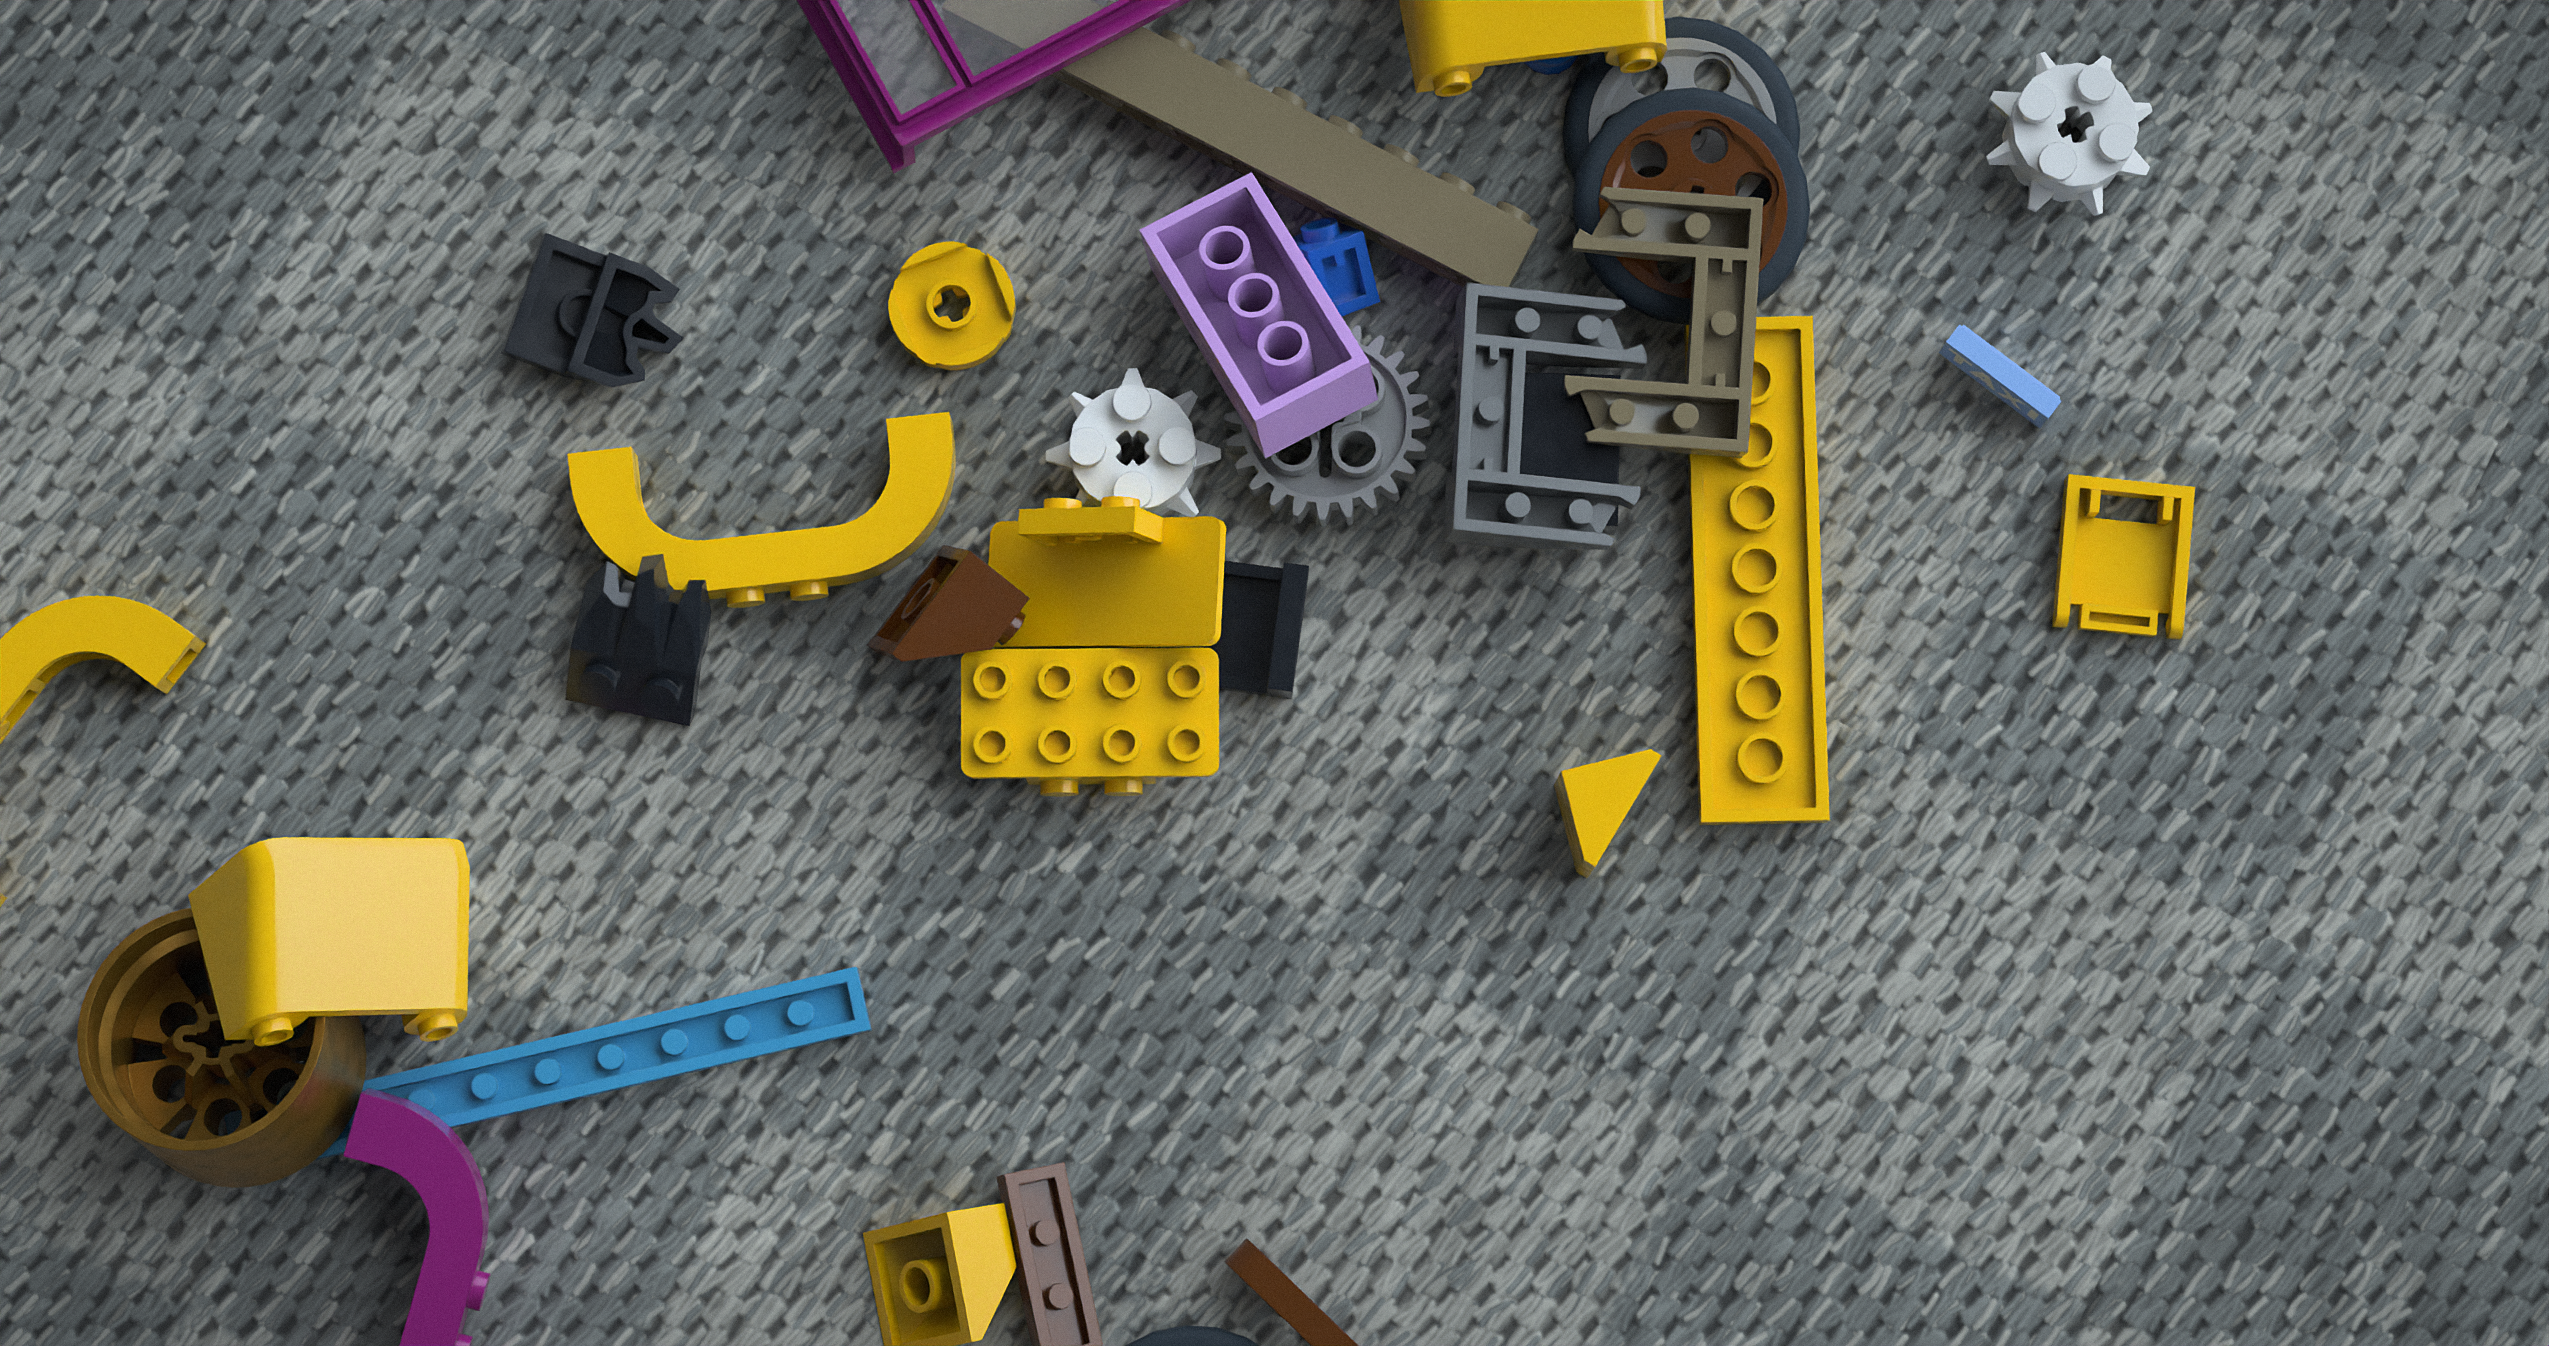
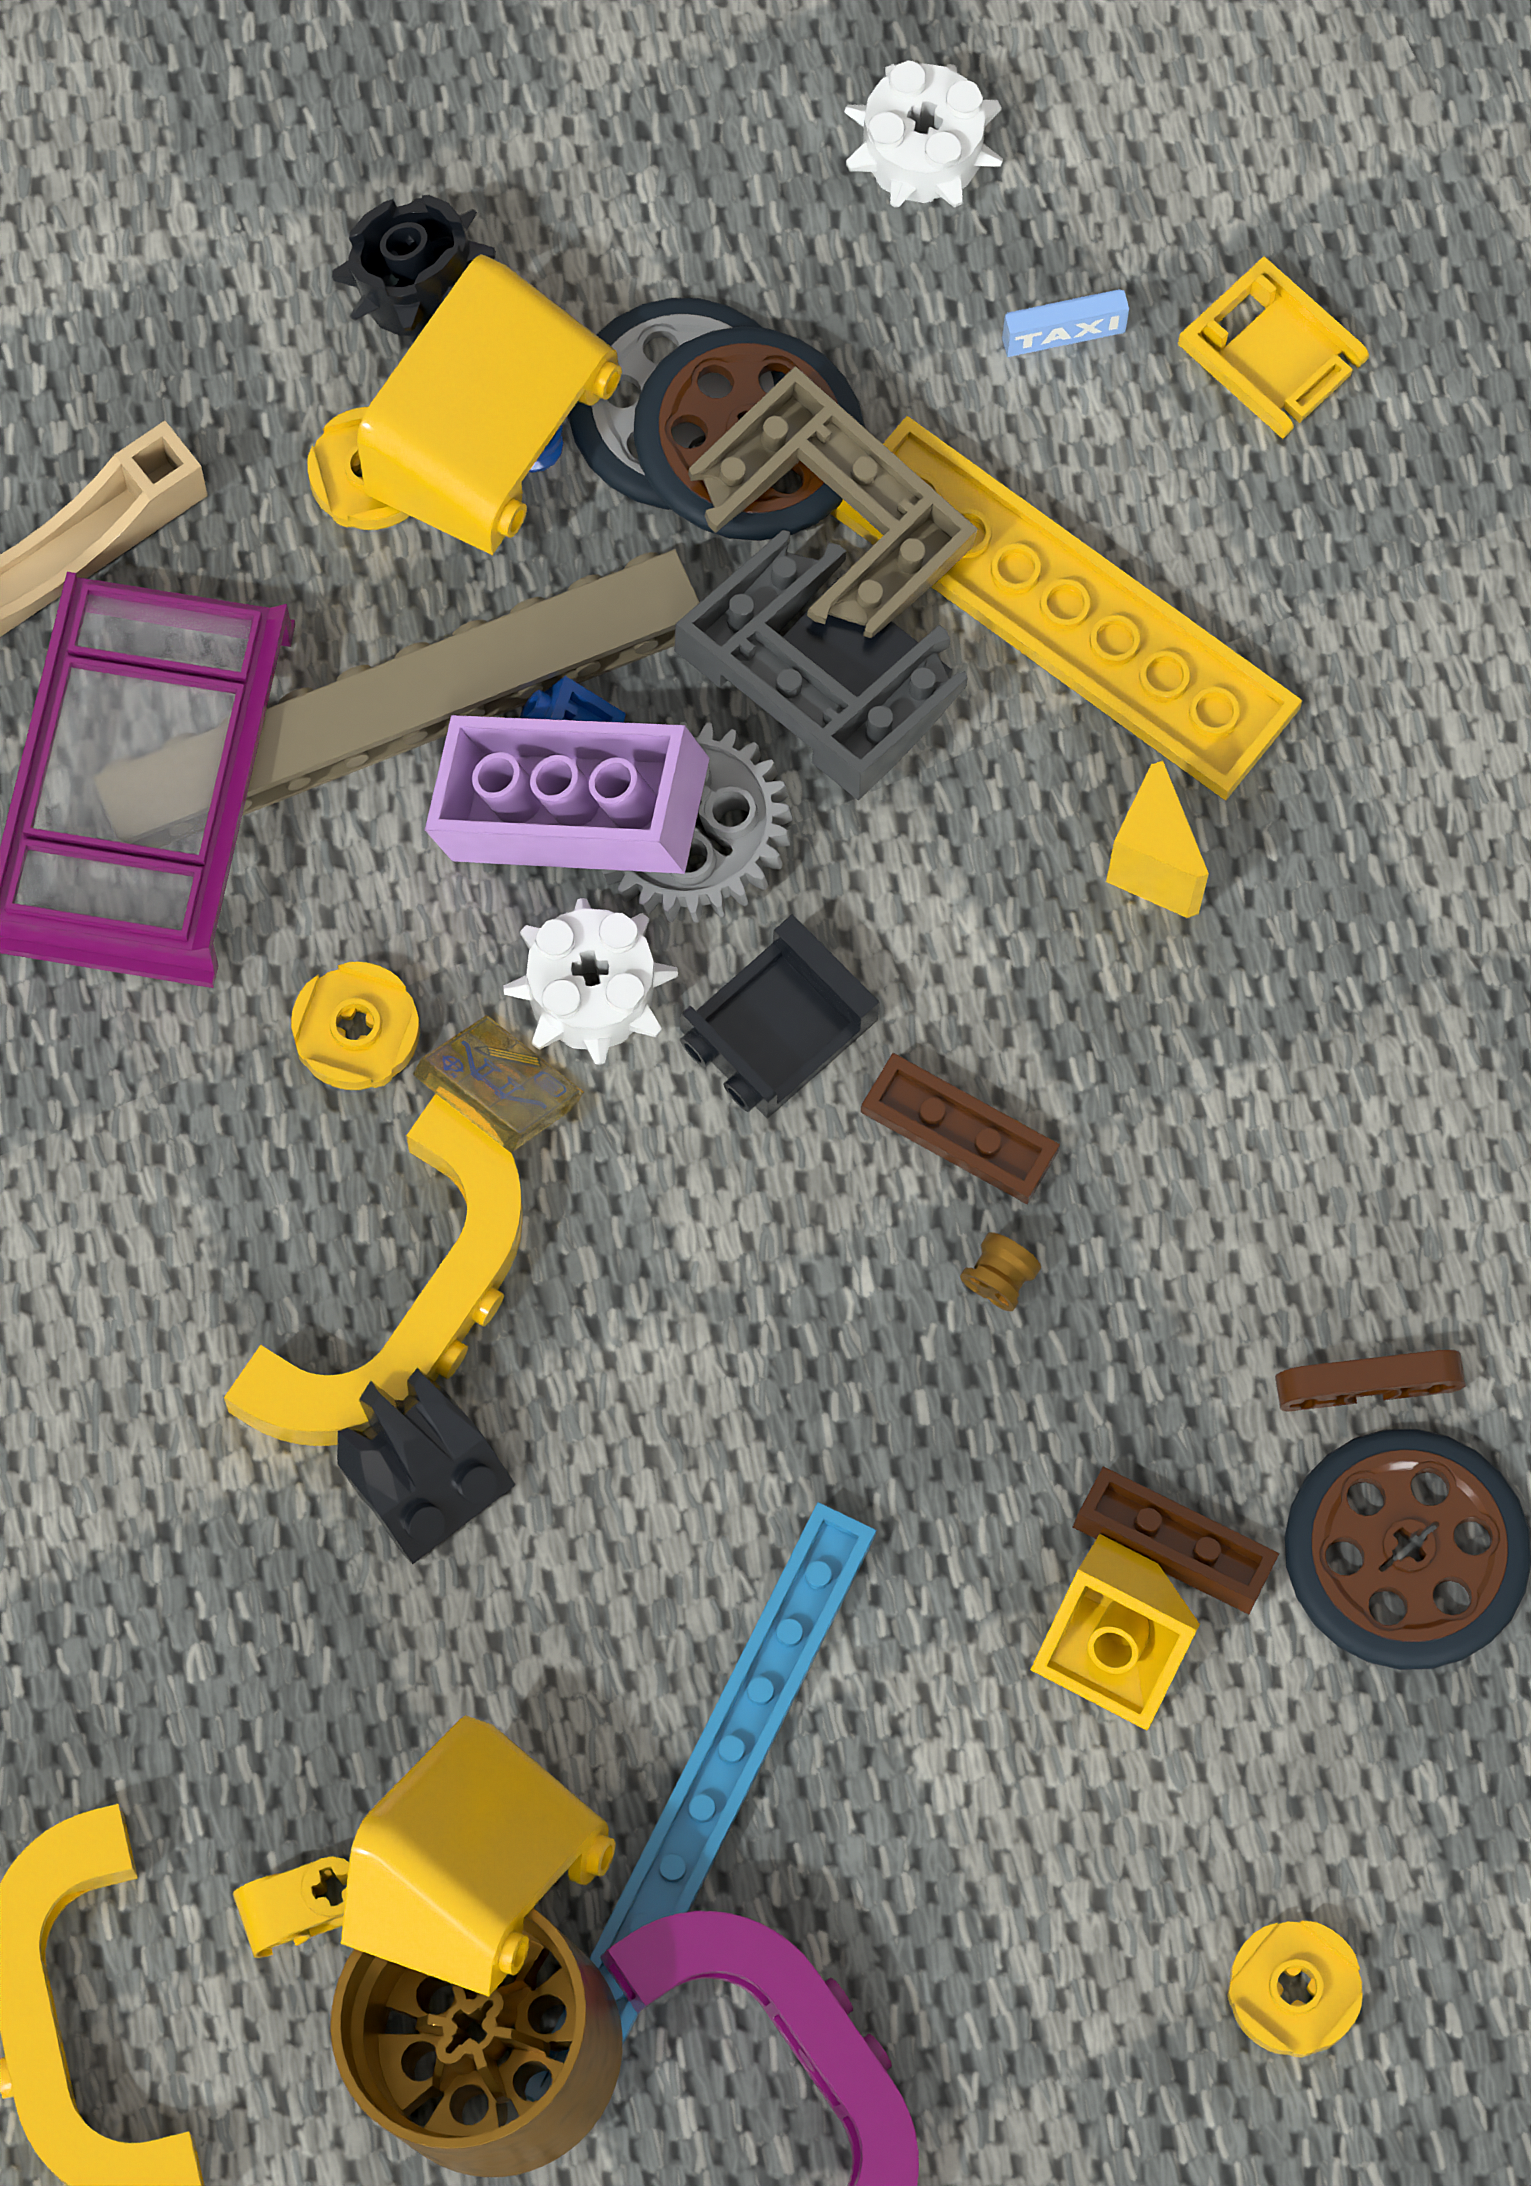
camera: 50 degrees left, 10 degrees down
(223, 821) = (288, 1905): none -> yellow piece
(589, 315) = (123, 1302): black plate -> none
(951, 610) = (595, 1202): reddish brown slope -> none
(987, 451) = (498, 1083): none -> clear yellow tile
(1090, 716) = (772, 1166): yellow bracket -> none
(1112, 575) = (672, 1070): yellow bracket -> none
(1157, 959) = (1001, 1271): none -> pearl gold wheel
(1251, 837) = (960, 1128): none -> reddish brown plate

